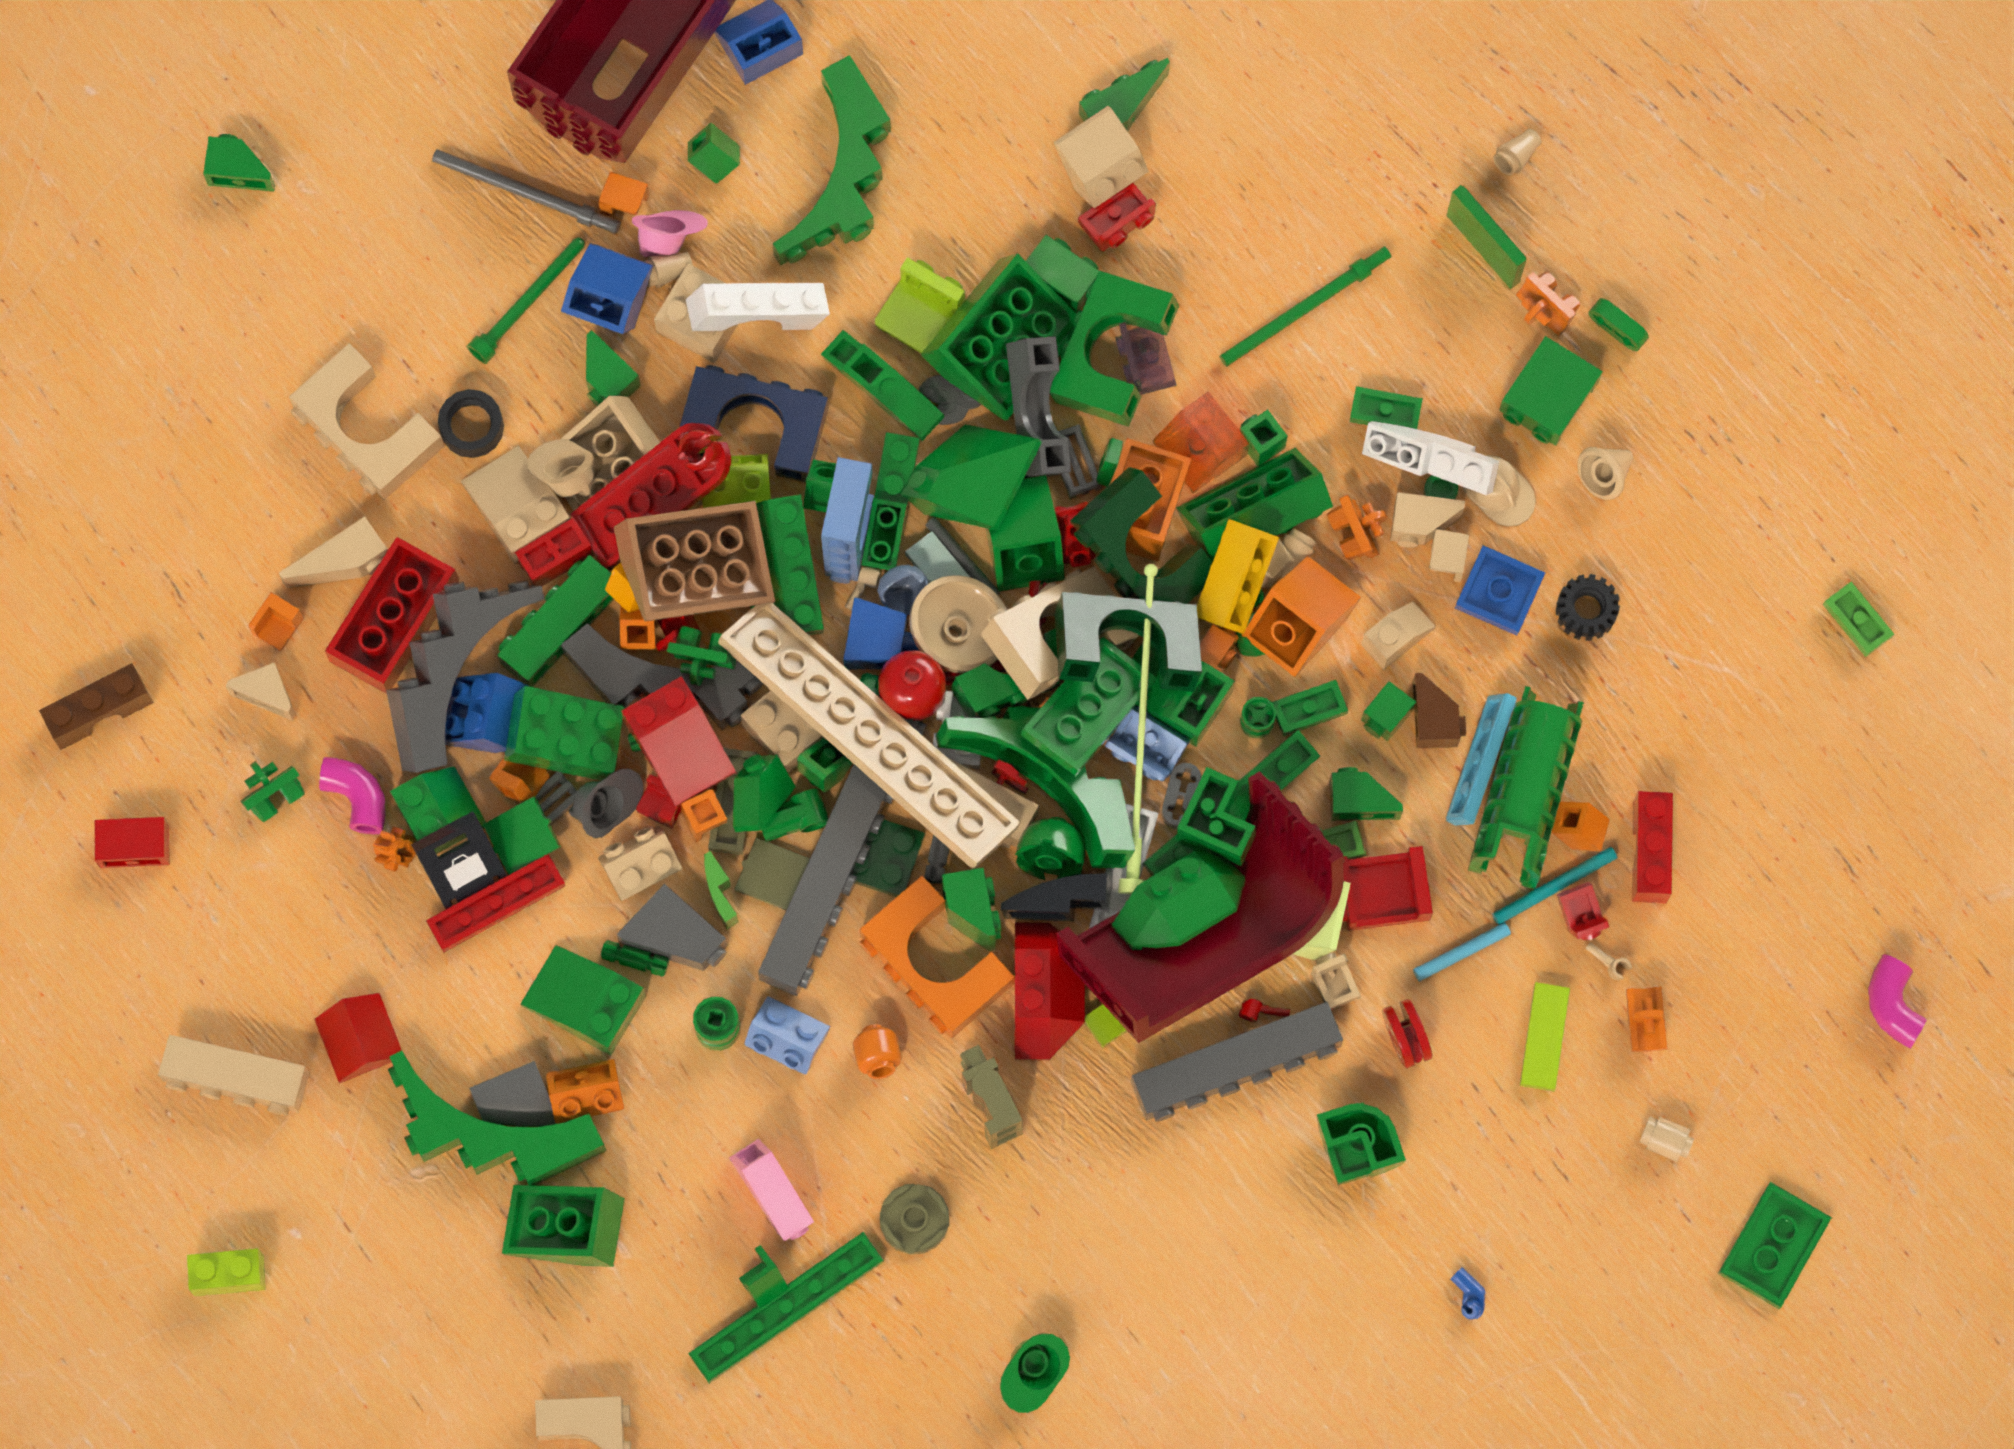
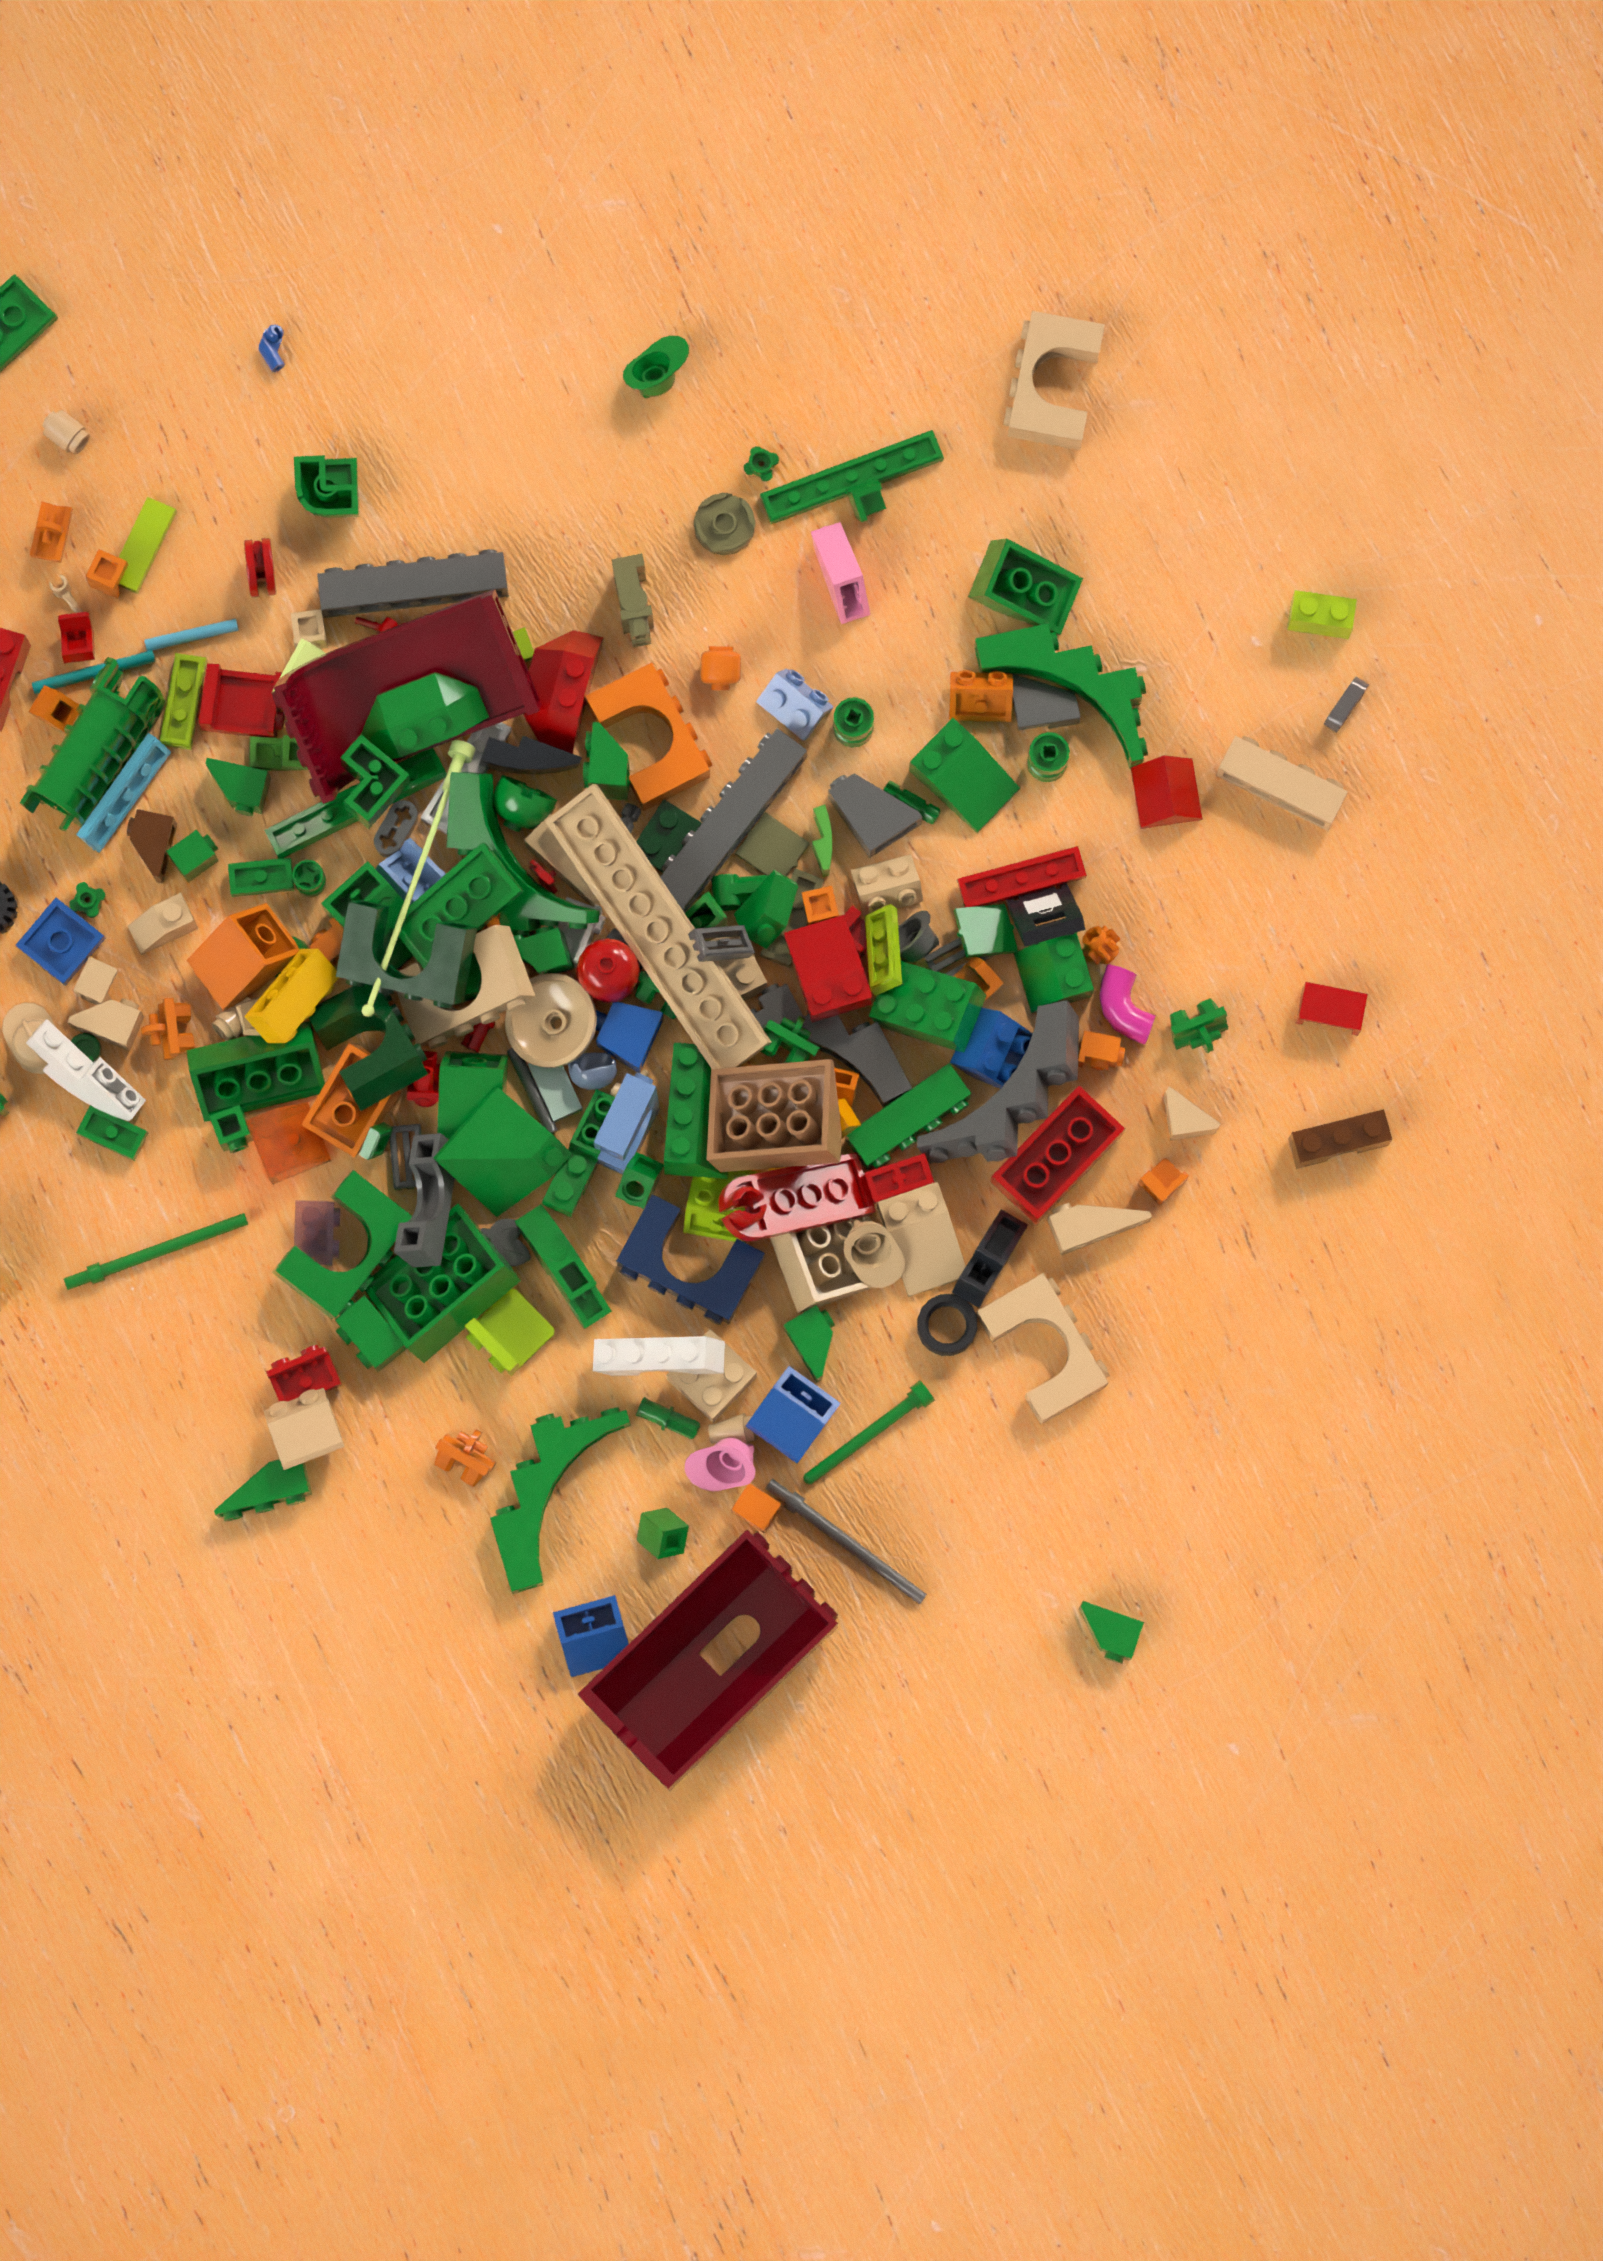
camera: 165 degrees left, 5 degrees up
(179, 1179) = (1346, 704): none -> dark grey beam
(371, 738) = (1100, 1051): none -> orange brick
(440, 498) = (989, 1258): none -> black slope
(495, 1037) = (1048, 757): none -> green wheel
(625, 779) = (883, 949): none -> lime tile
(736, 265) = (668, 1418): none -> green axle
(816, 716) = (724, 948): none -> dark grey tile
(898, 1289) = (761, 455): none -> green plate
(932, 180) = (467, 1451): none -> orange hips
(1449, 878) = (183, 701): none -> lime tile
(1478, 648) = (96, 897): none -> green plate
(1572, 987) = (106, 573): none -> orange panel

